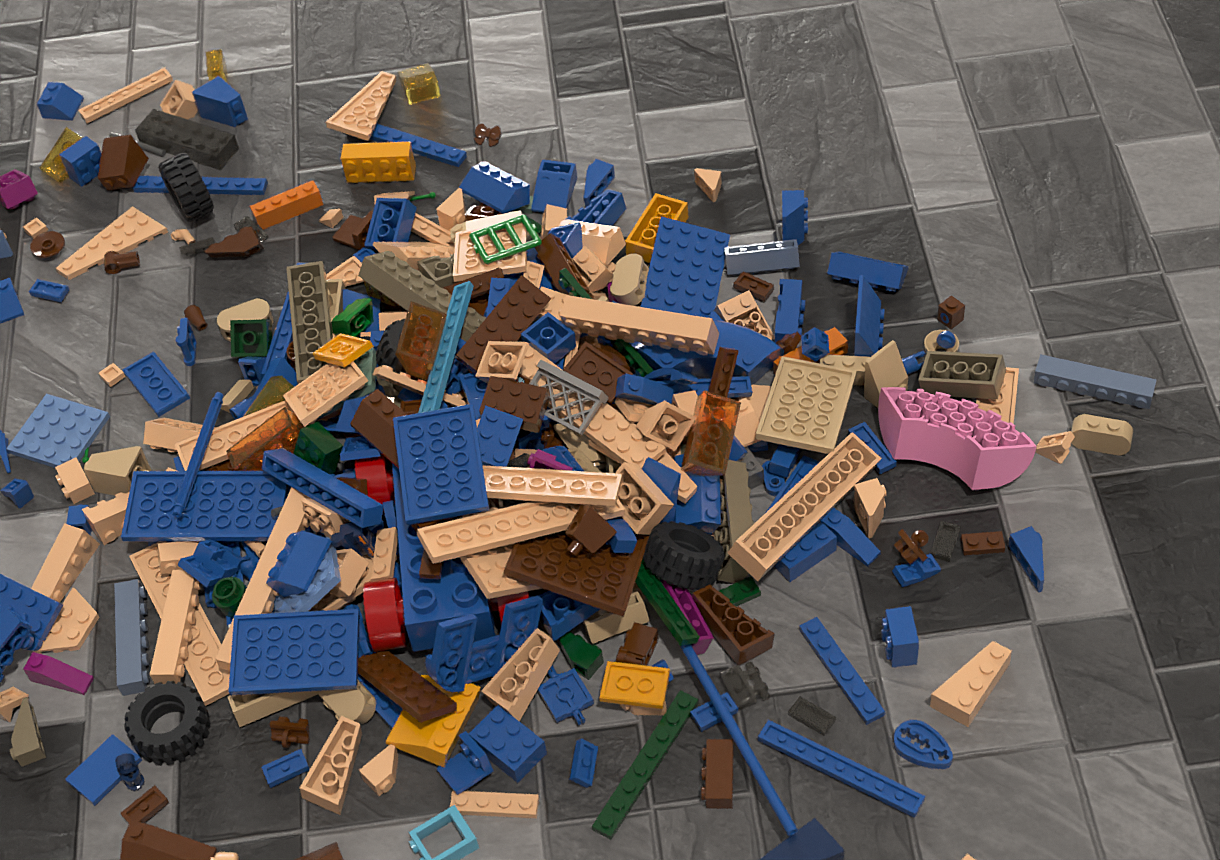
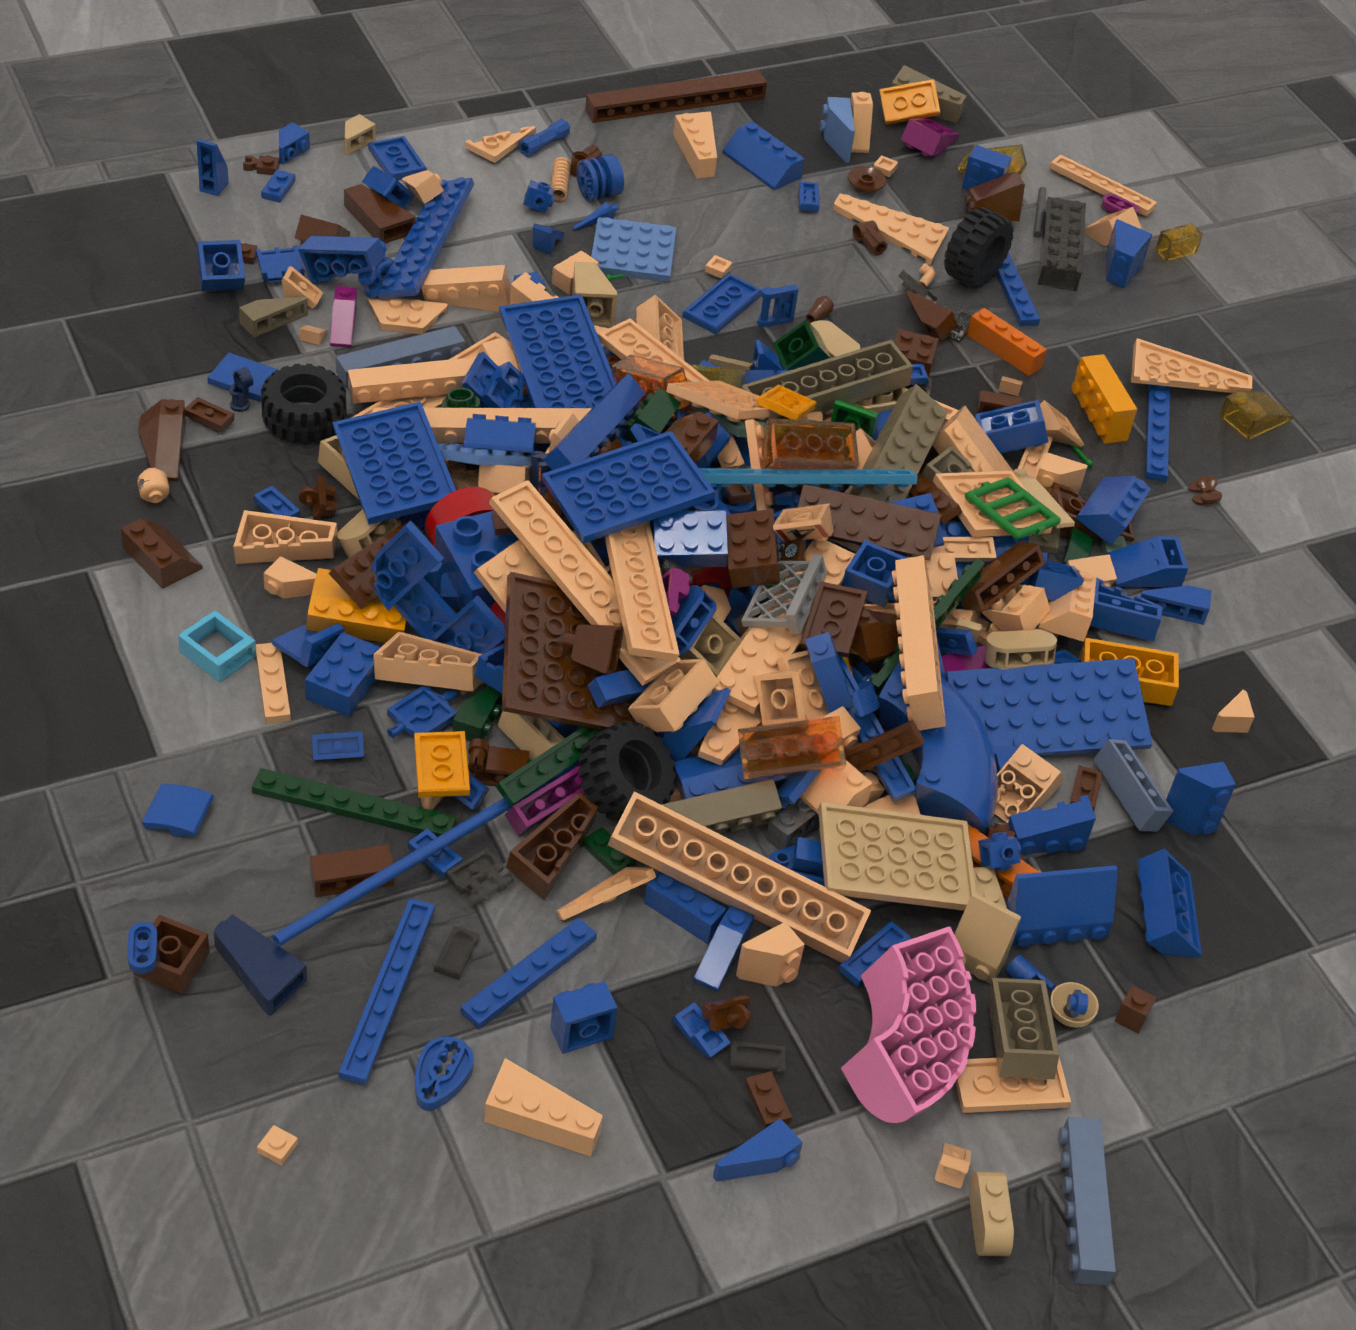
camera: 60 degrees right, 5 degrees down
(59, 102) = (1065, 138): blue slope -> none
(66, 705) = (312, 334): none -> light nougat slope
(155, 92) = (1114, 203): none -> magenta plate
(197, 455) = (618, 334): blue piece -> none
(272, 268) = (917, 348): none -> reddish brown brick
(777, 594) = (607, 890): none -> light nougat wing

